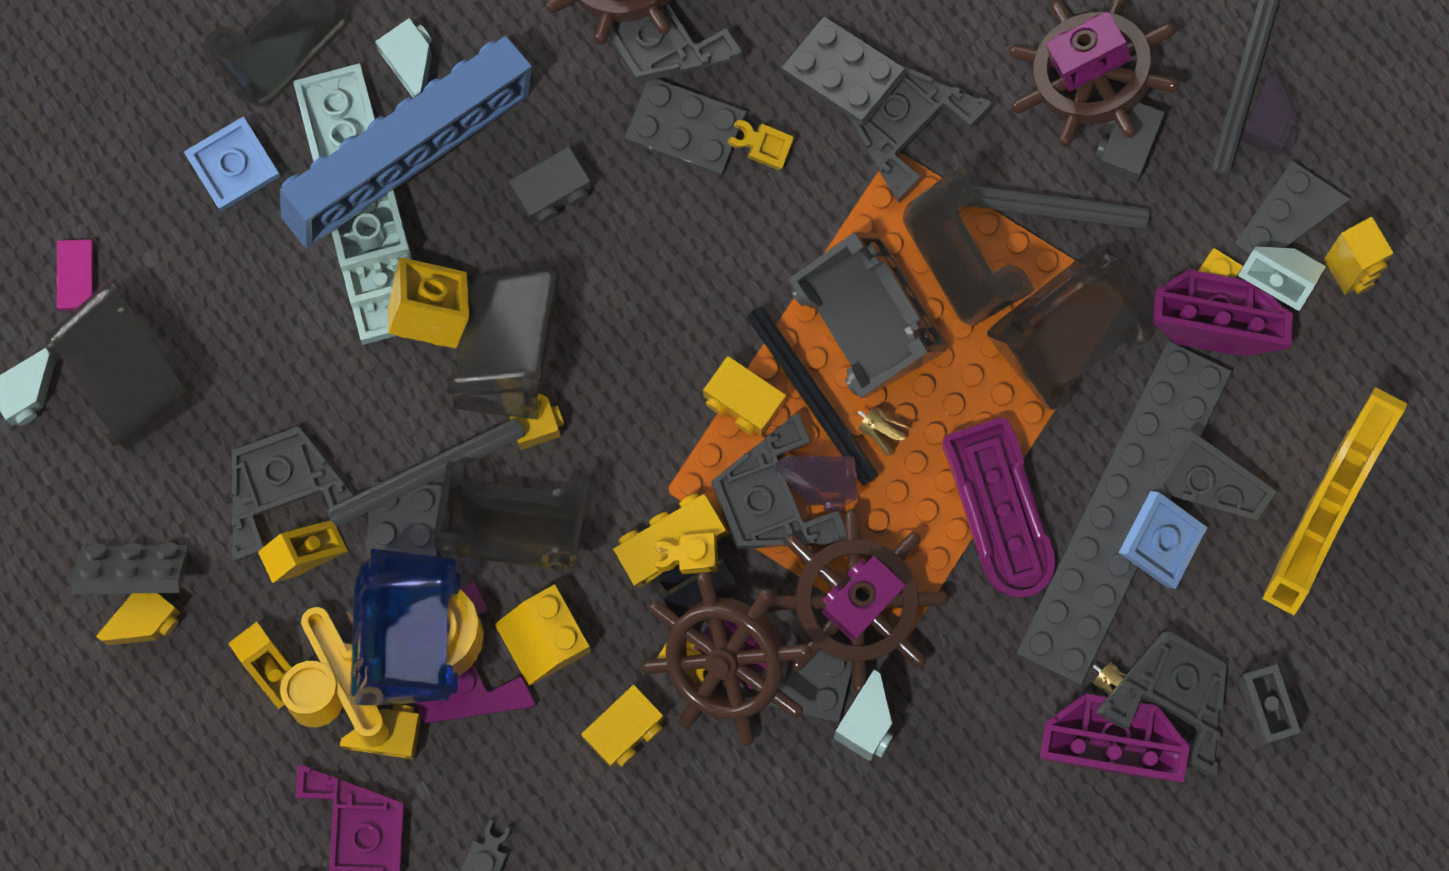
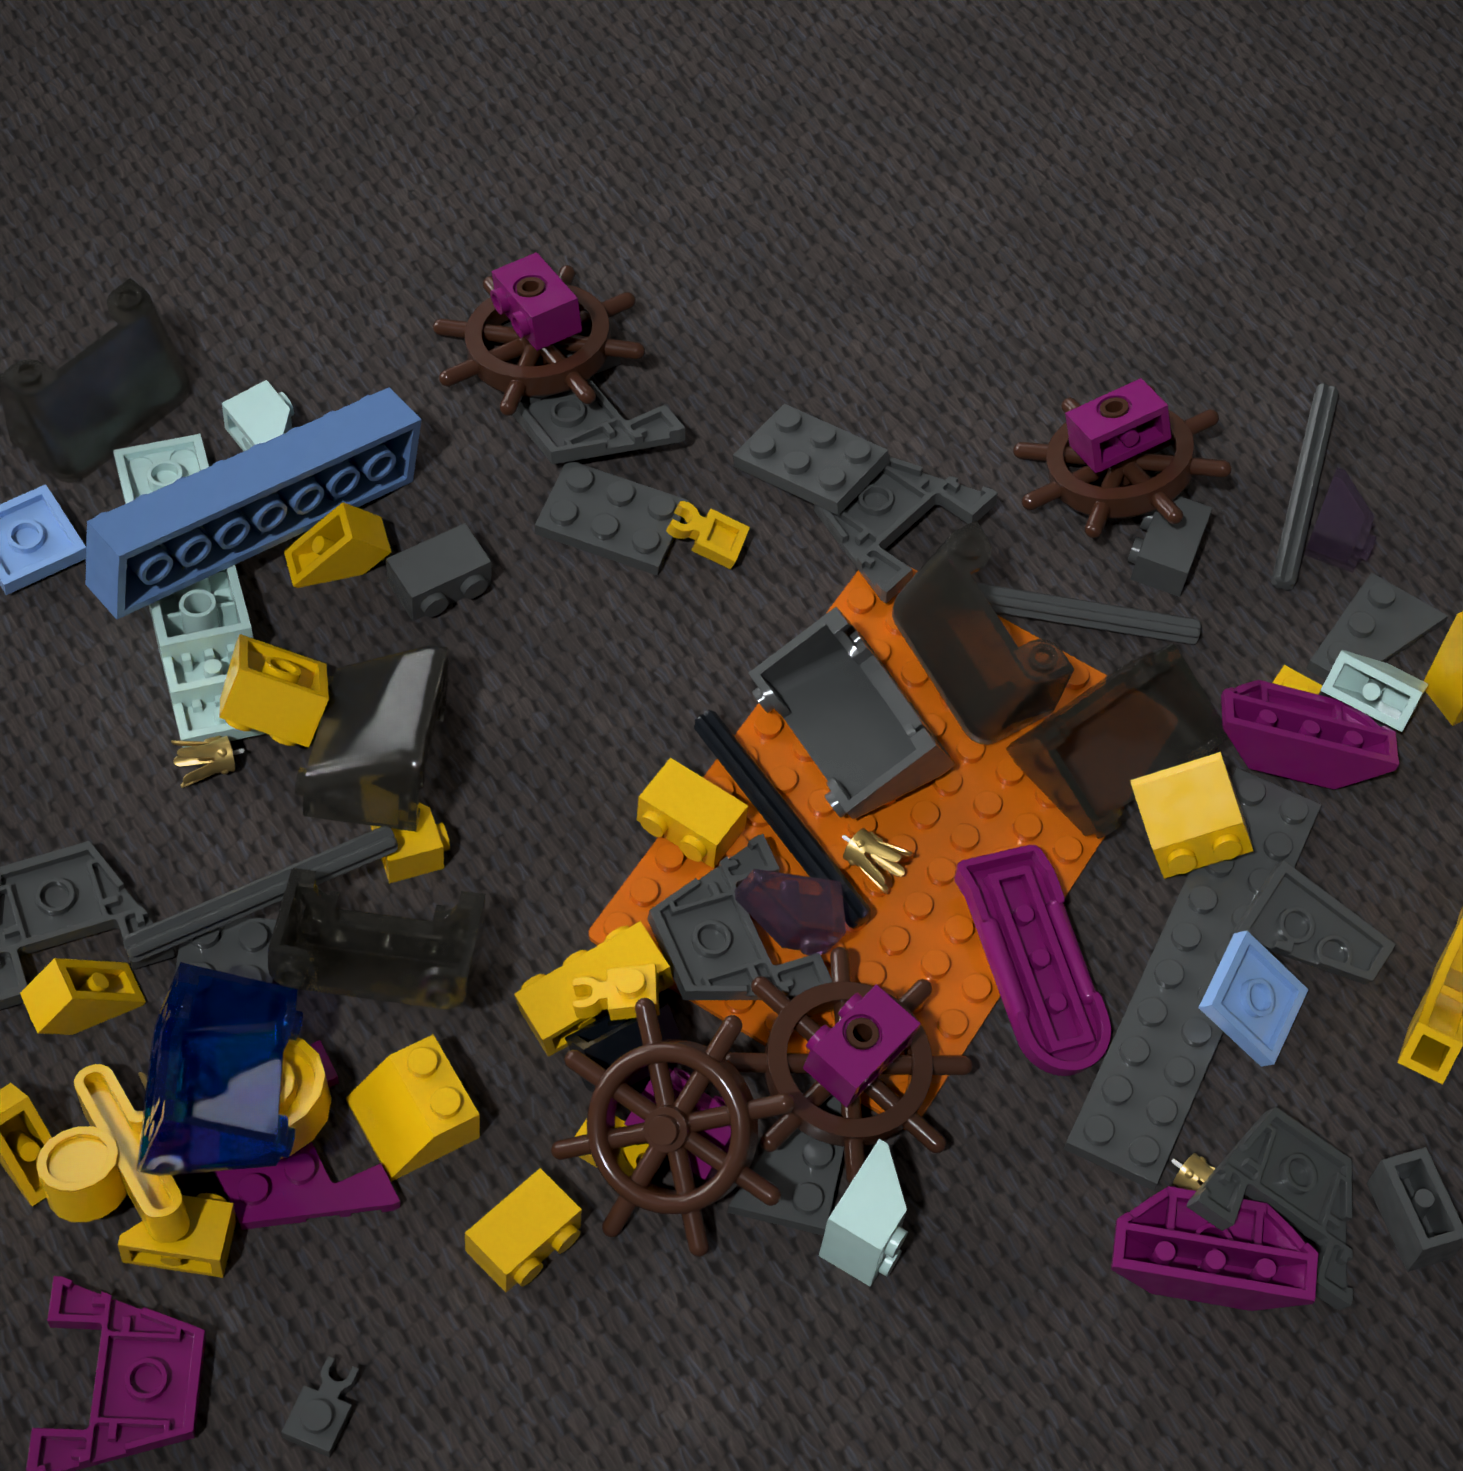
camera: 10 degrees left, 20 degrees down
(384, 347) = (212, 751): none -> pearl gold piece
(471, 166) = (338, 547): none -> yellow slope
(1125, 396) = (1192, 815): none -> yellow slope

